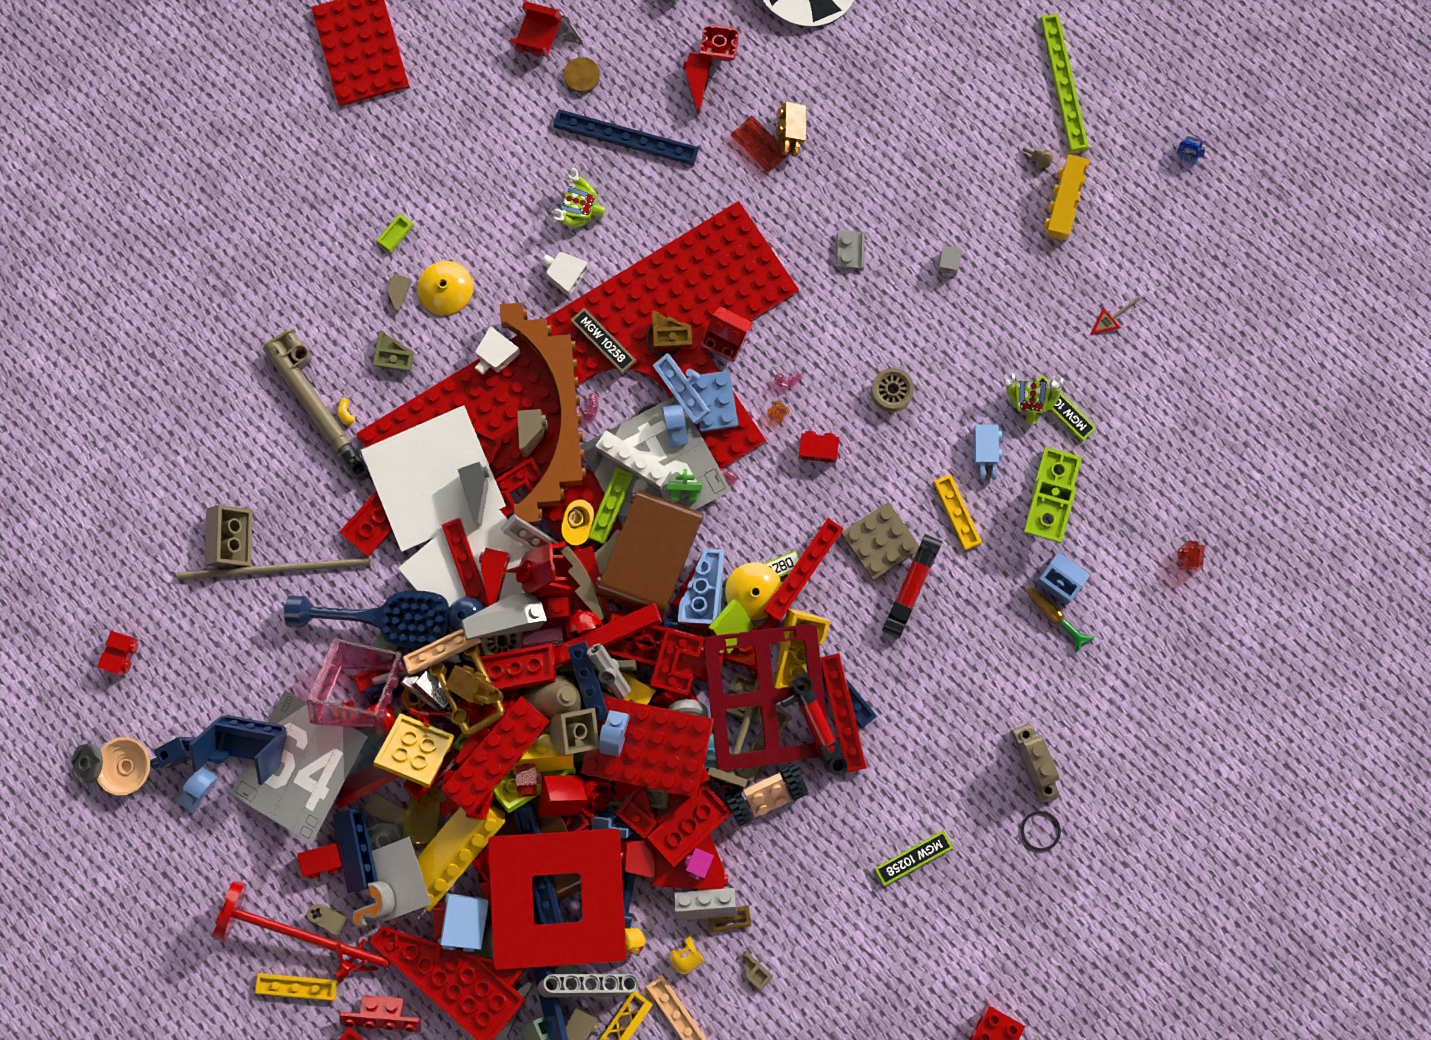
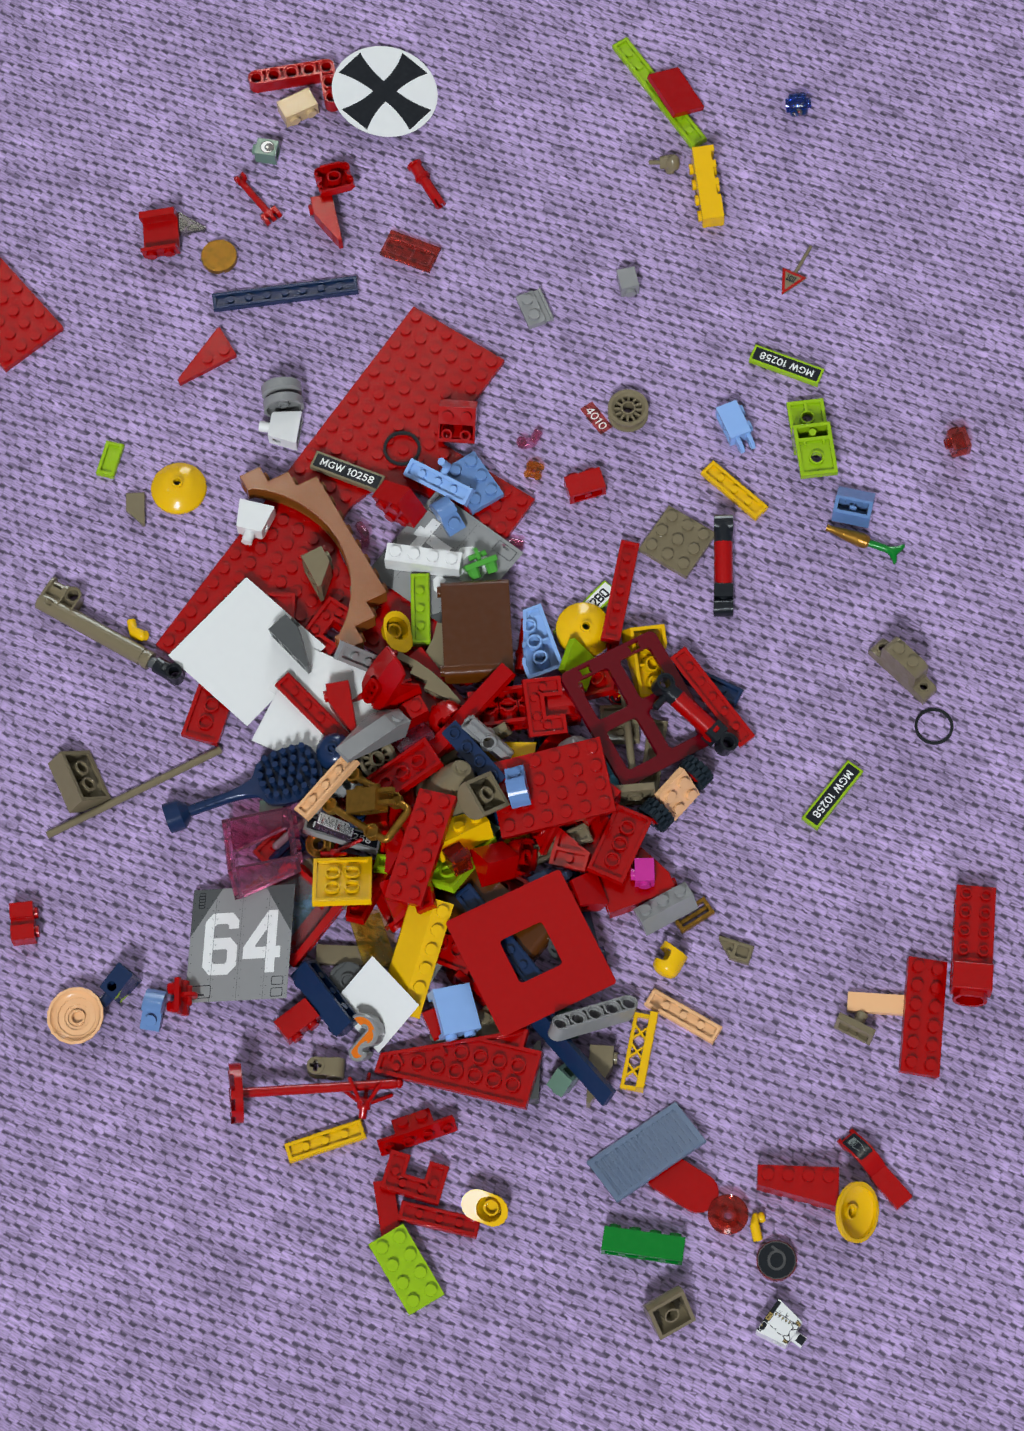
camera: 20 degrees left, 10 degrees down
(87, 763) = (40, 1028): dark grey tile -> none
(227, 789) = (182, 996): none -> red hips
(241, 739) = (178, 947): dark blue windscreen -> none
(392, 354) = (157, 563): olive wing -> none
(531, 170) = (212, 354): none -> red wing
(575, 240) = (282, 395): none -> light grey wheel
(579, 203) = (268, 362): torso -> none
(634, 941) = (617, 967): yellow head -> none
(635, 394) = (399, 503): none -> red brick
(646, 50) = (267, 213): none -> red hinge
(670, 333) = (405, 439): pearl gold wing -> none
(791, 127) = (432, 225): hinge -> none
(803, 75) = (423, 177): none -> red pin
(860, 383) = (596, 418): none -> clear red sticker
(1033, 396) = (755, 364): torso -> none
(1079, 89) = (675, 92): none -> red tile

